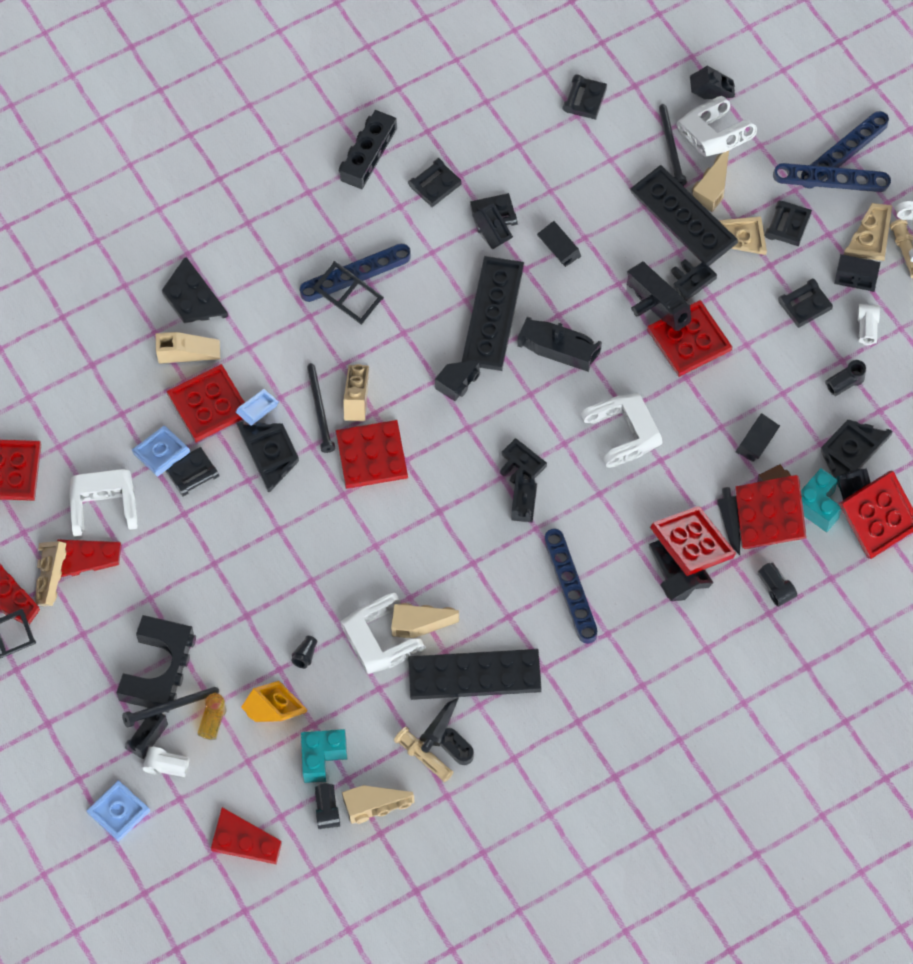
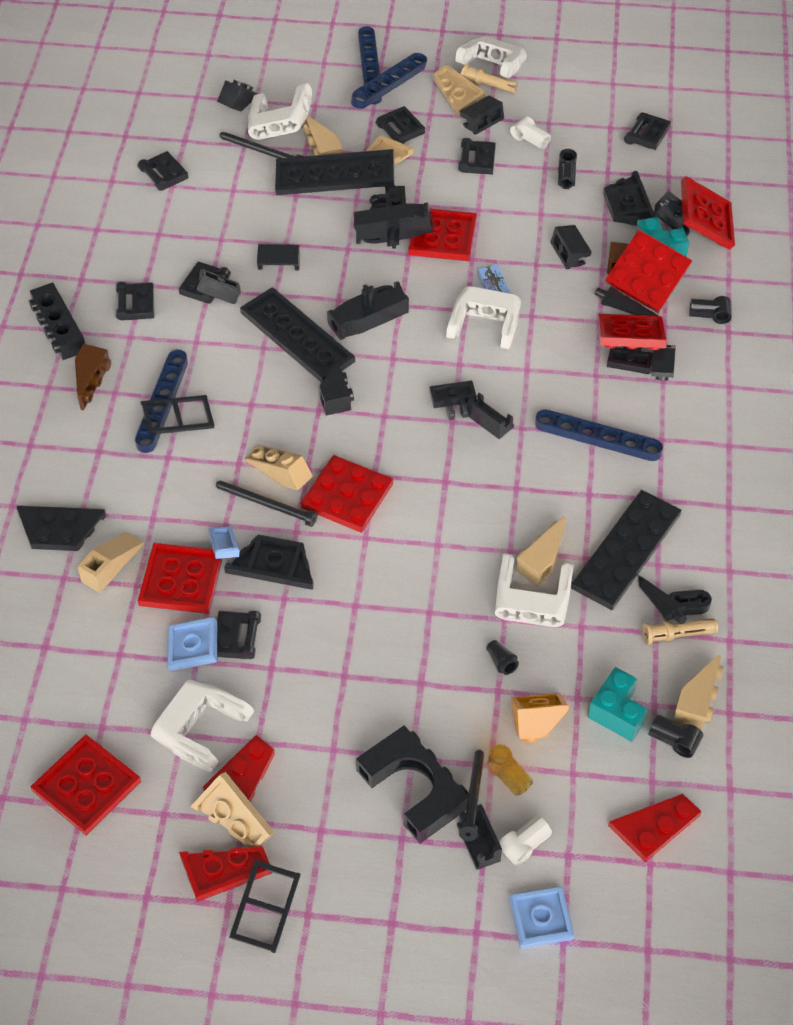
camera: 55 degrees left, 10 degrees down
(338, 206) = (90, 368): none -> reddish brown slope
(670, 409) = (492, 279): none -> light blue tile

